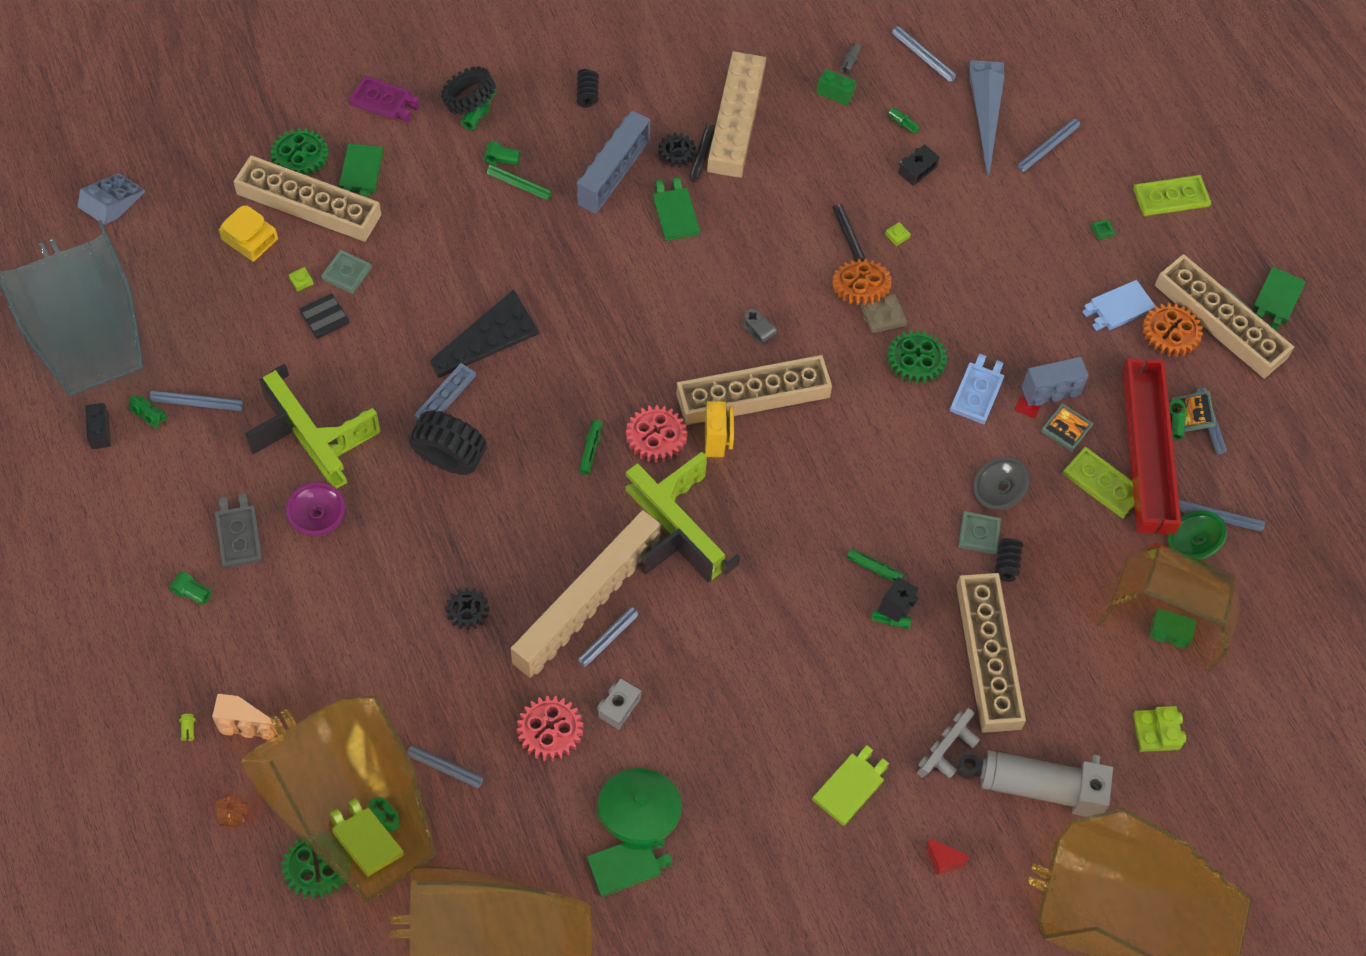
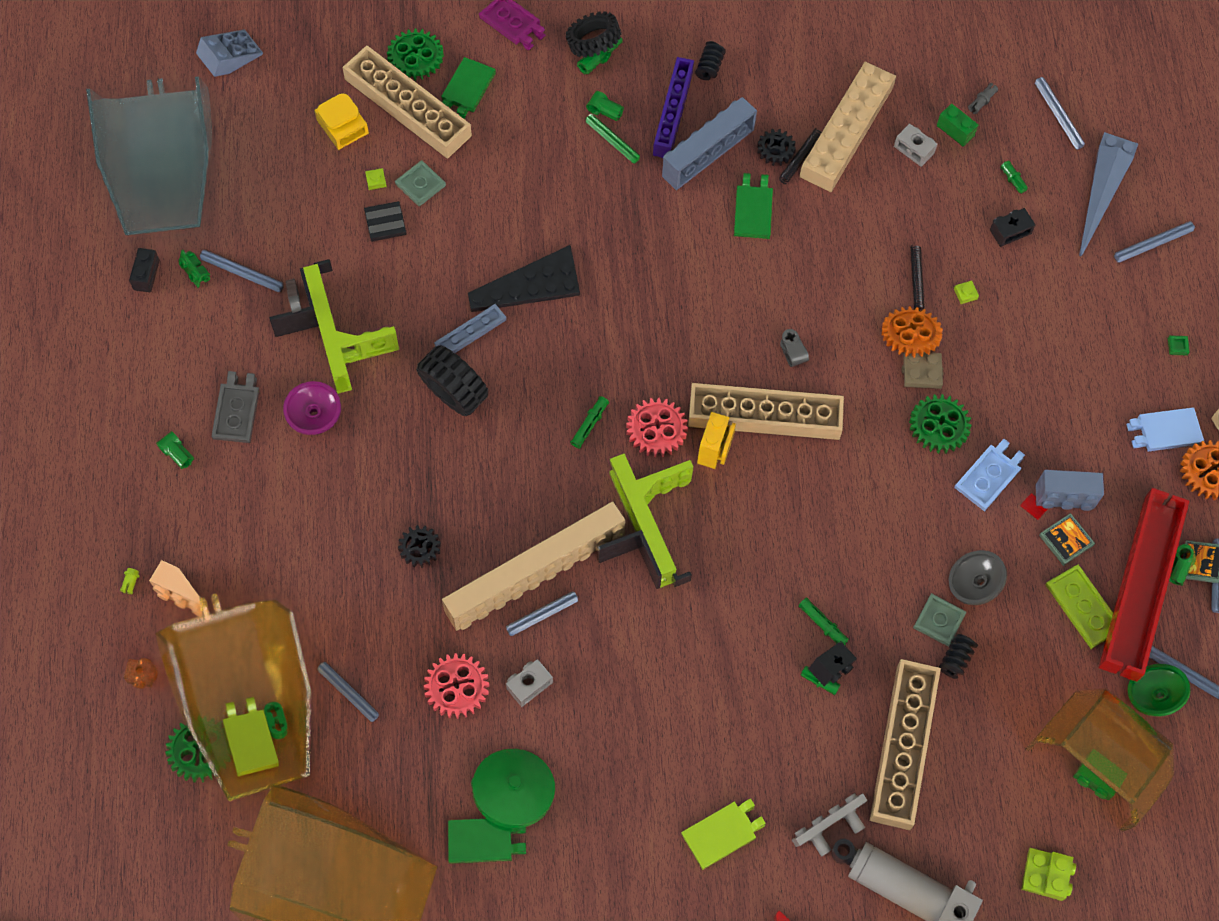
camera: 20 degrees right, 5 degrees up
(261, 407) = (293, 295): none -> dark grey beam
(568, 138) = (673, 107): none -> dark purple brick
(804, 115) = (918, 153): none -> light grey brick

